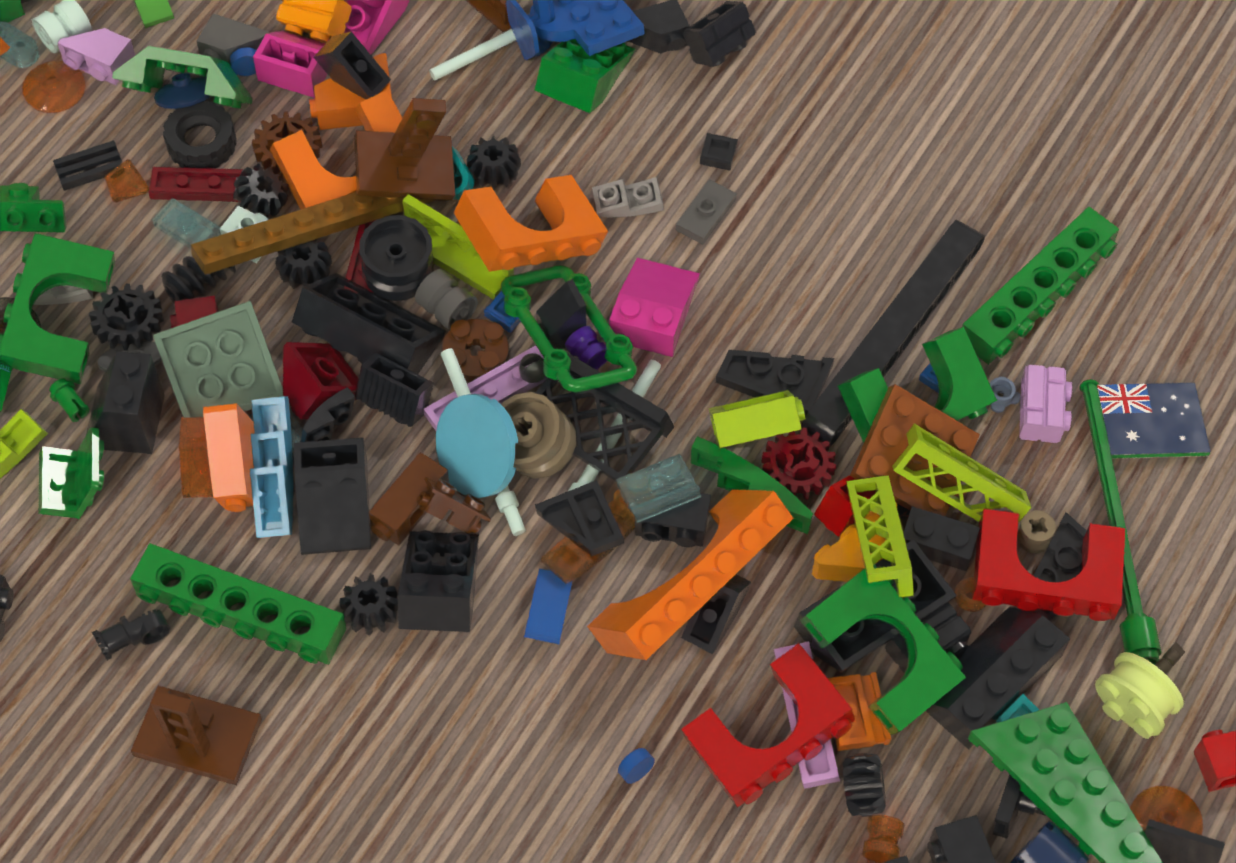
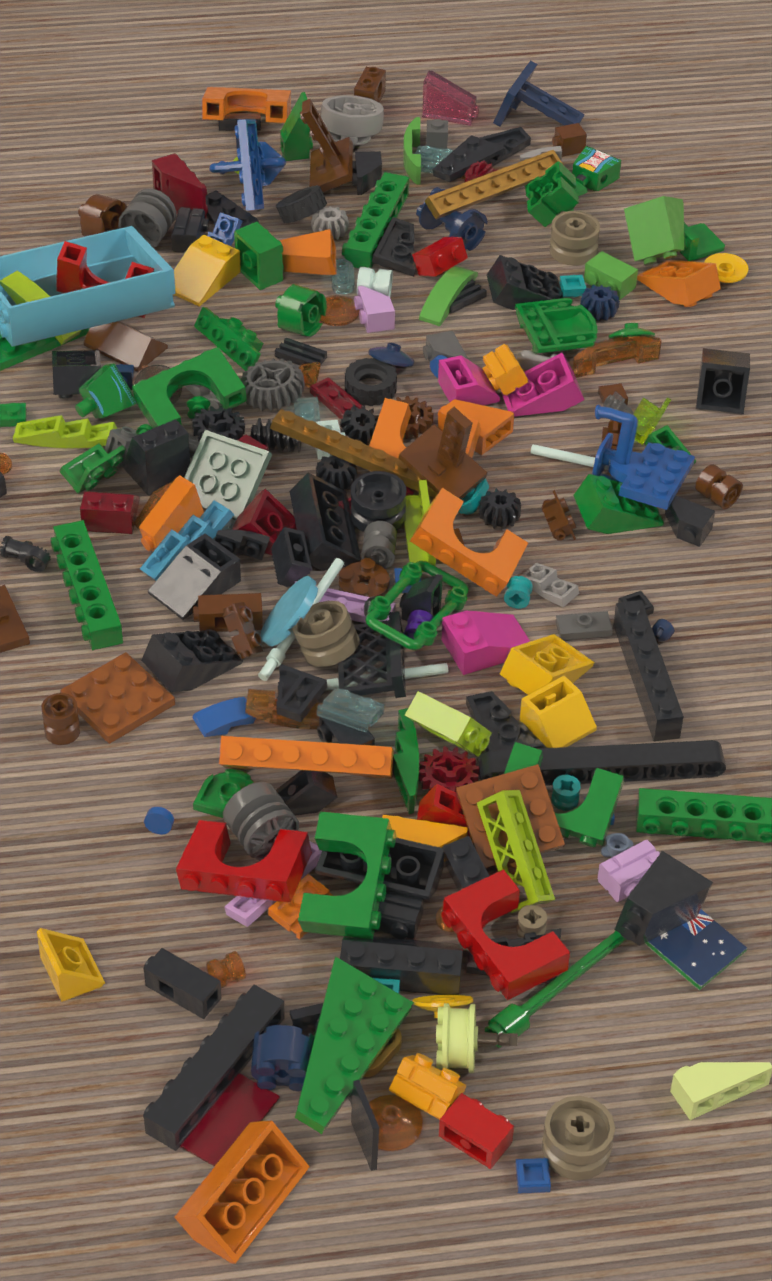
camera: 50 degrees right, 15 degrees down
(36, 118) = (300, 310): none -> green brick
(62, 424) = (119, 437): none -> dark grey bracket
(76, 314) = (196, 404): none -> green plate
(109, 215) = (273, 384): none -> dark grey gear
(146, 506) = (109, 512): none -> dark red slope
(149, 66) = (407, 356): slope -> none
(352, 65) = (481, 400): black slope -> none
(366, 594) = (138, 634): black gear -> none
(417, 764) = (60, 718): none -> reddish brown wheel
(423, 687) = (119, 697): none -> dark orange plate
(562, 127) = (560, 524): none -> reddish brown hinge
(620, 231) = (518, 592): none -> teal wheel
(652, 682) = (219, 790): none -> green tile
(719, 33) = (717, 548): black brick -> none
(732, 673) = (257, 816): none -> dark grey wheel
(737, 283) = (542, 662): none -> yellow slope
(773, 156) = (666, 626): none -> dark blue hinge
(810, 319) = (557, 714): none -> yellow slope
(816, 205) = (648, 671): none -> black brick
(864, 784) = (250, 933): black gear -> none
(887, 526) = (426, 823): lime fence -> none
(907, 373) = (565, 792): none -> teal wheel
(1076, 674) = (432, 1002): none -> yellow dish
(1119, 410) = (662, 900): none -> black slope
(1167, 761) = (426, 1085): none -> light orange brick

